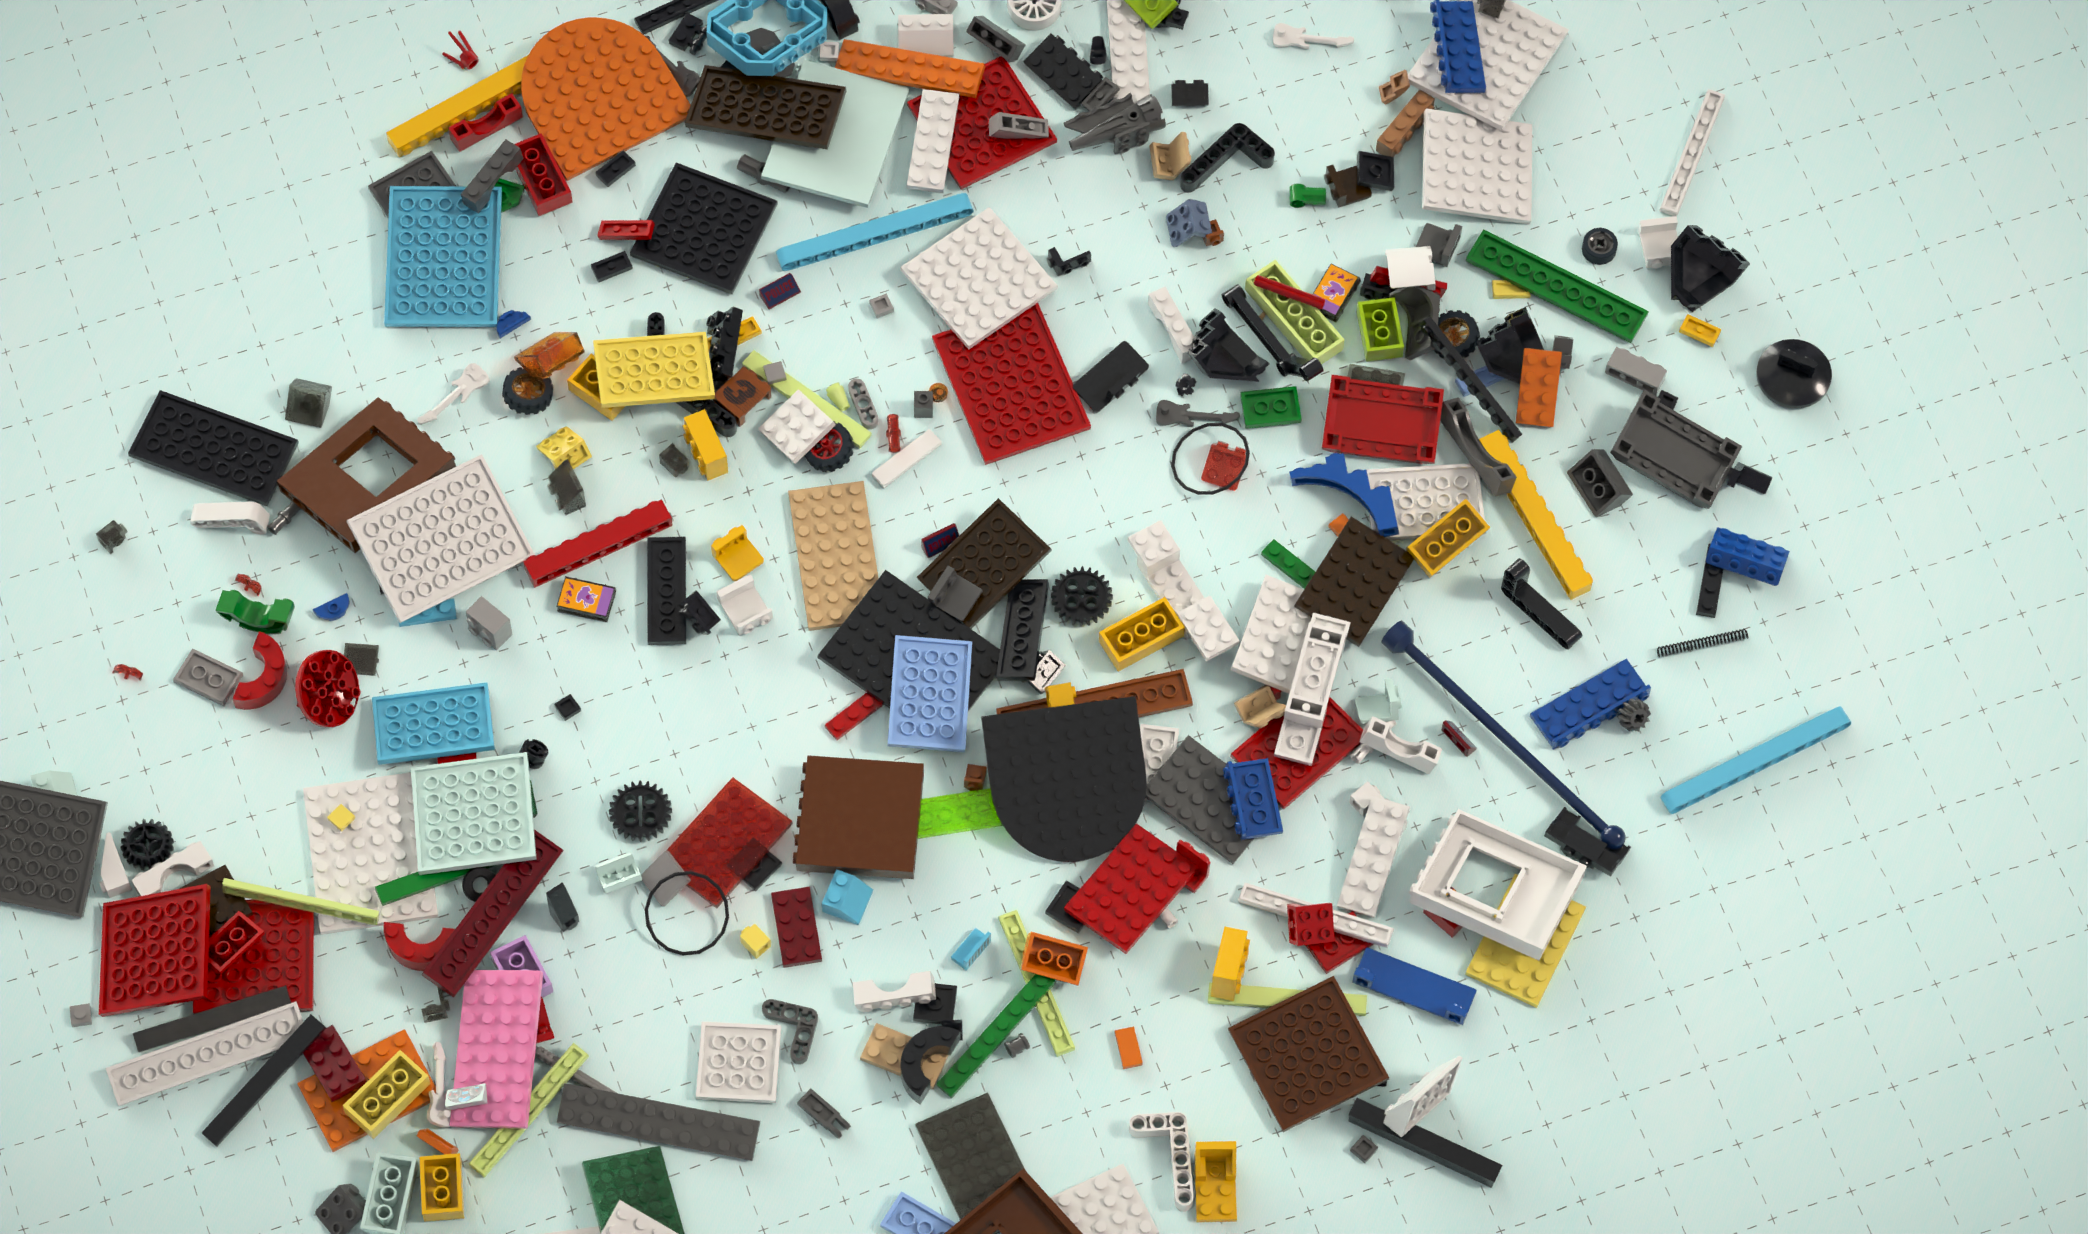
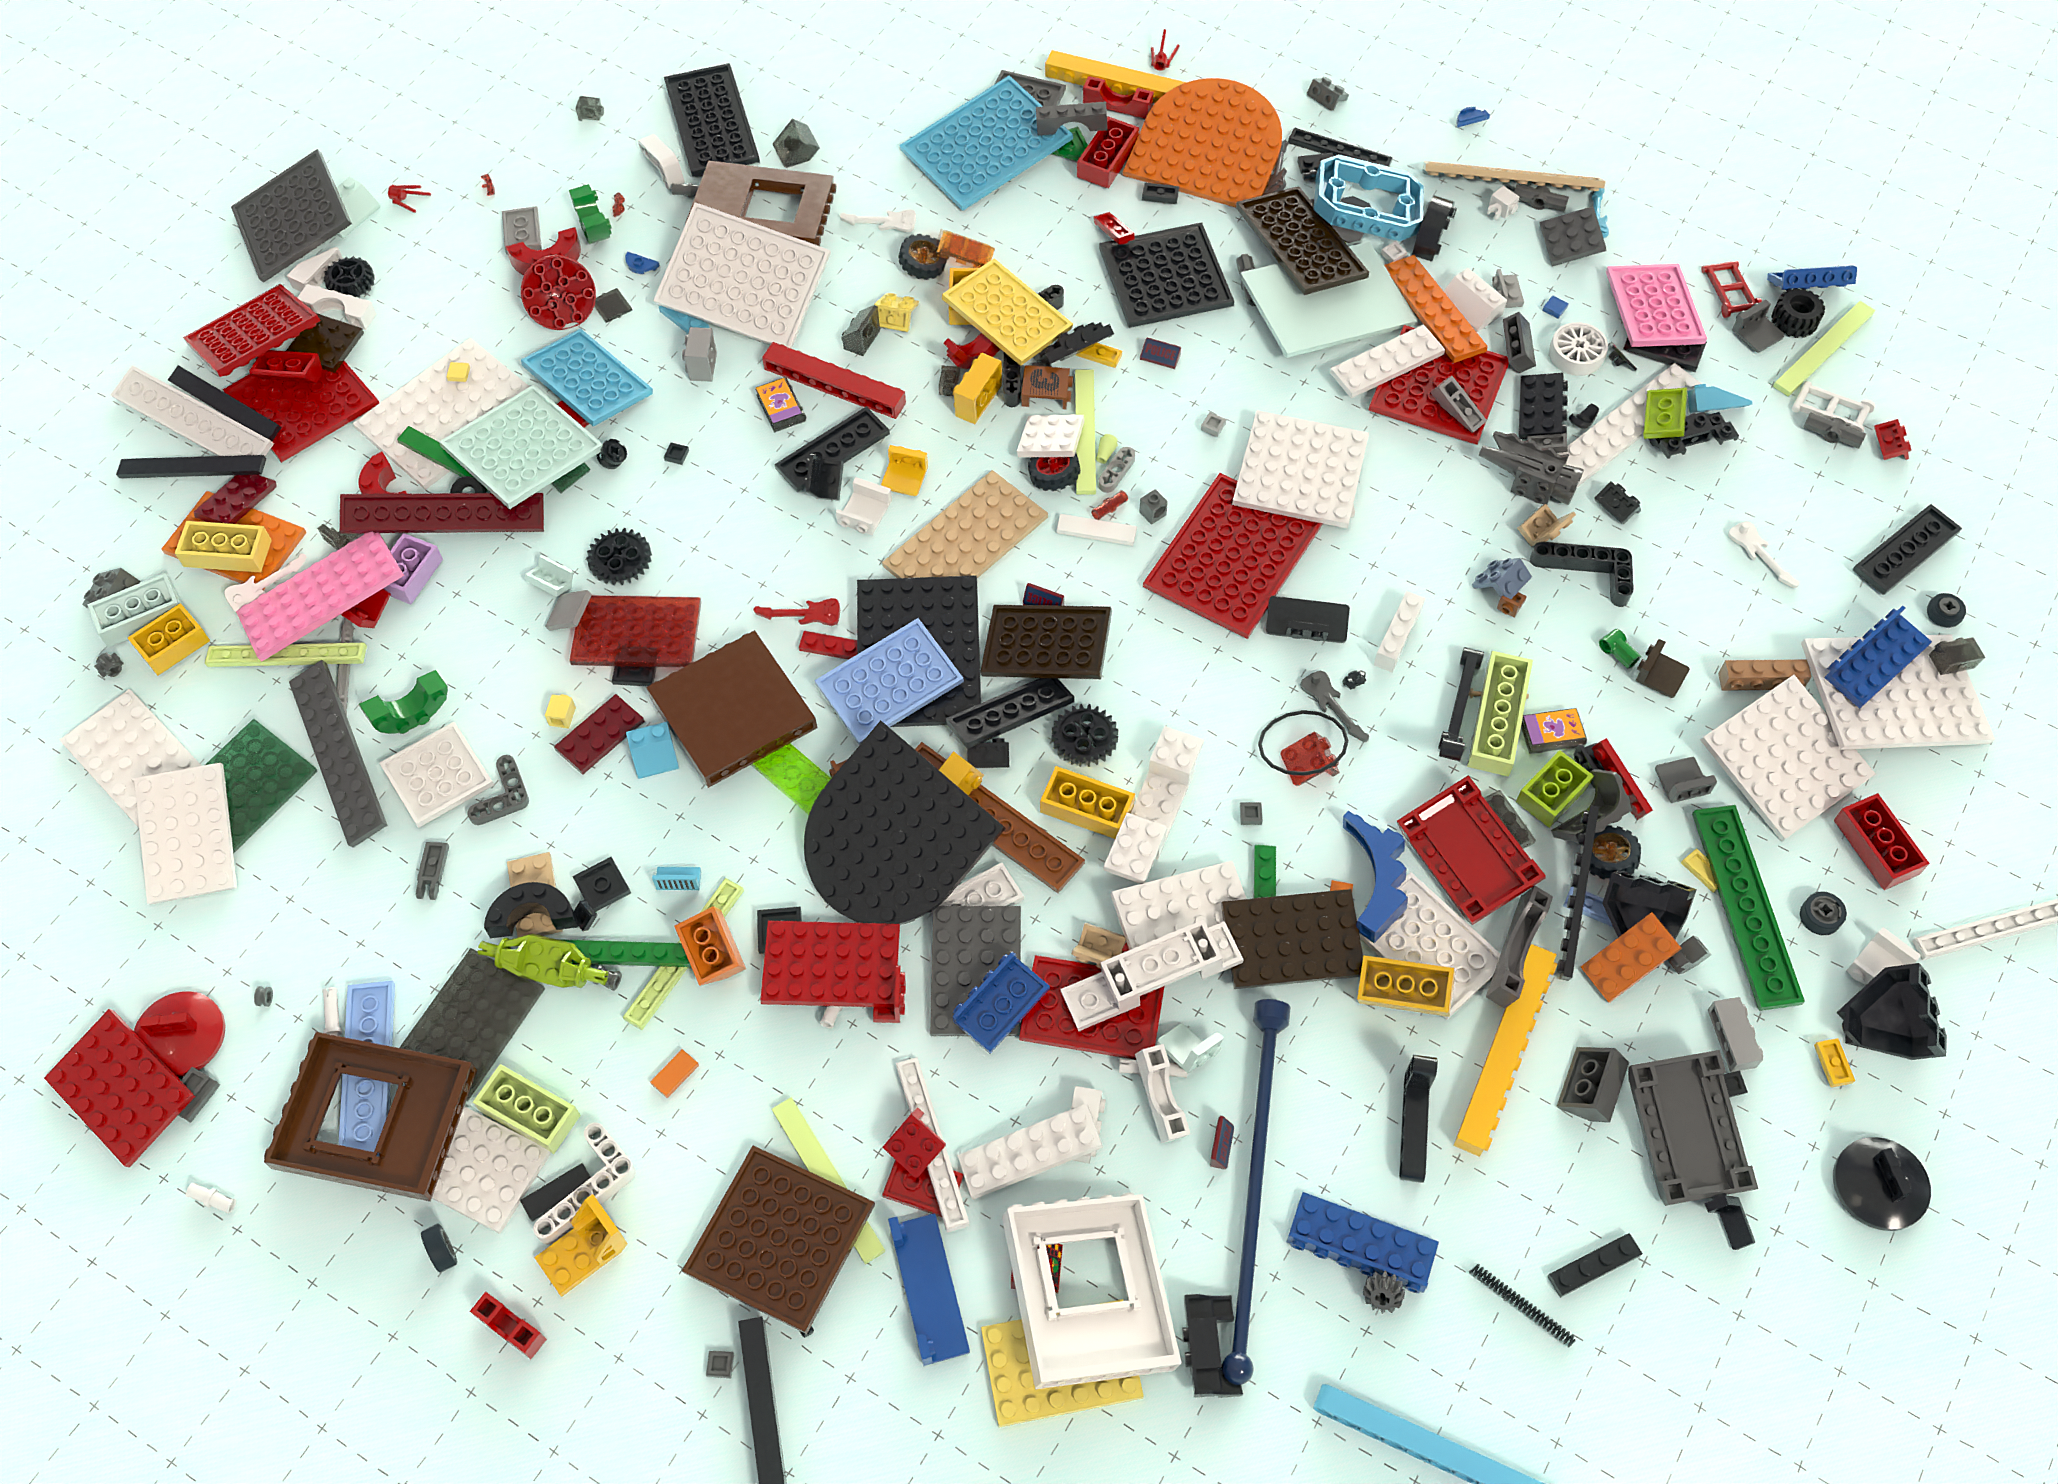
camera: 55 degrees right, 5 degrees down
(75, 749) = (398, 193): none -> red plant
(80, 1015) = (177, 329): light grey plate -> none
(300, 901) = (358, 389): yellowish green tile -> none
(437, 1142) = (212, 612): orange tile -> none
(466, 1097) = (260, 600): slope -> none
(510, 321) = (972, 213): blue plate -> none
(562, 908) = (481, 554): black slope -> none
(611, 266) = (1077, 241): black plate -> none
(662, 424) = (964, 355): none -> red arch
(664, 1043) = (410, 710): none -> green brick
(680, 874) = (578, 660): black piece -> none
(774, 372) = (1085, 393): light grey tile -> none
(822, 698) = (824, 612): none -> red piece
(874, 232) = (1273, 378): medium azure beam -> none
(918, 989) = (598, 857): white arch -> none
(940, 392) = (1176, 512): clear orange tile -> none
(954, 594) = (996, 635): dark grey bracket -> none
(974, 1075) = (544, 960): none -> lime plate
(1065, 267) = (1380, 523): black bracket -> none
(1082, 1157) = (526, 1108): none -> yellowish green brick
(1158, 1178) = (551, 1194): none -> black tile
(1223, 353) = (1410, 682): black panel -> none
(1230, 964) = (814, 1098): yellow brick -> none
(1235, 535) = (1251, 813): none -> dark grey plate
(1270, 407) = (1398, 757): green plate -> none
(1289, 292) = (1513, 690): red axle -> none
(1375, 171) = (1697, 682): black plate -> none
(1395, 87) = (1788, 642): medium nougat slope -> none
(1411, 267) = (1633, 765): white panel -> none
(1422, 1097) = (800, 1380): white slope -> none
(1582, 166) = (1881, 841): none -> red brick
(1747, 556) = (1650, 1280): blue bracket -> none

